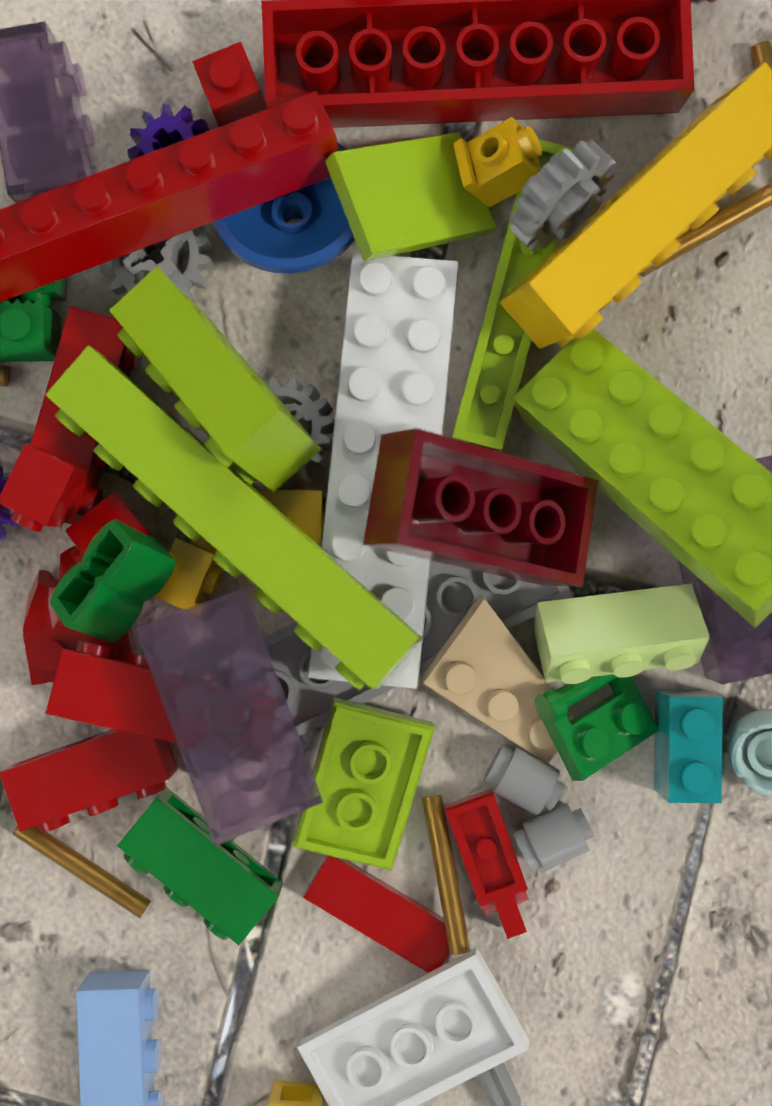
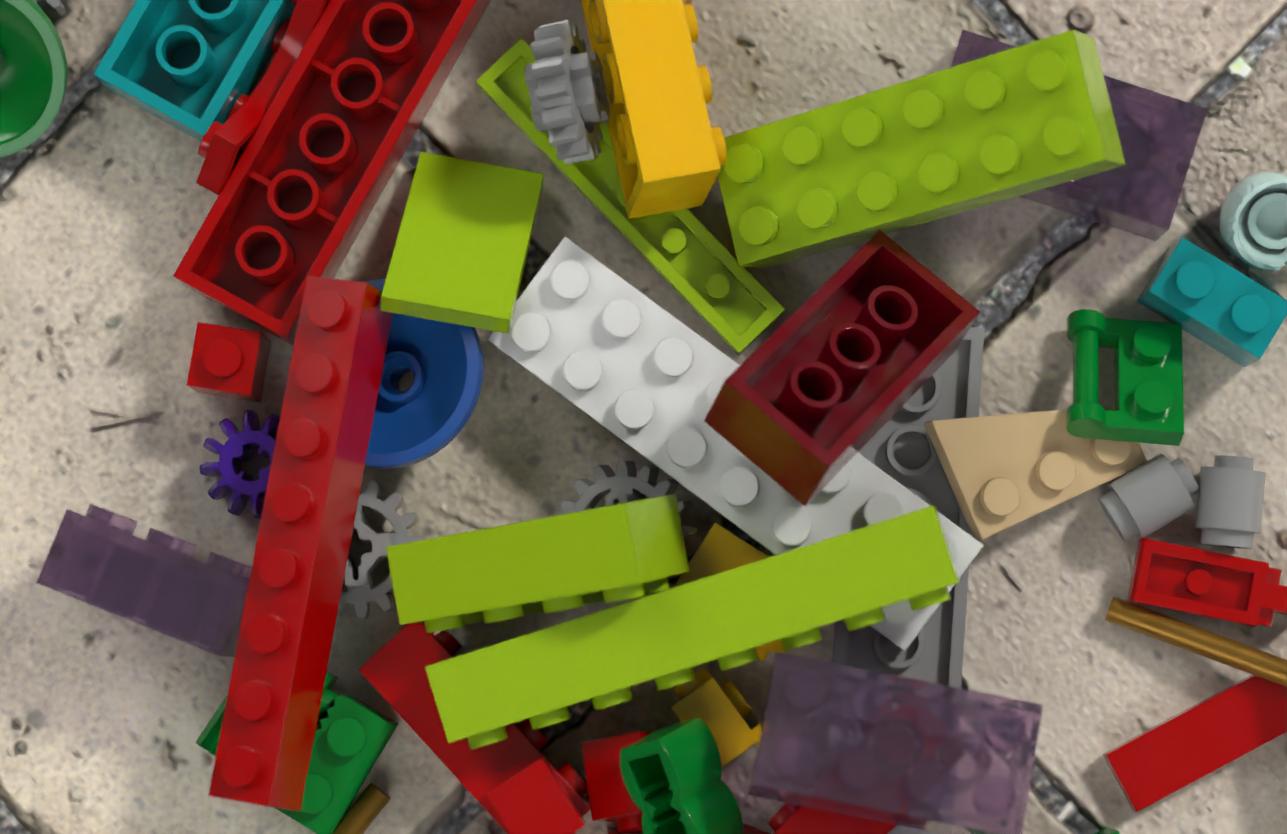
camera: 60 degrees left, 5 degrees down
(366, 783) = (1046, 650): lime tile -> none
(498, 161) = (483, 130): yellow brick -> none
(620, 633) = (1052, 303): yellowish green brick -> none

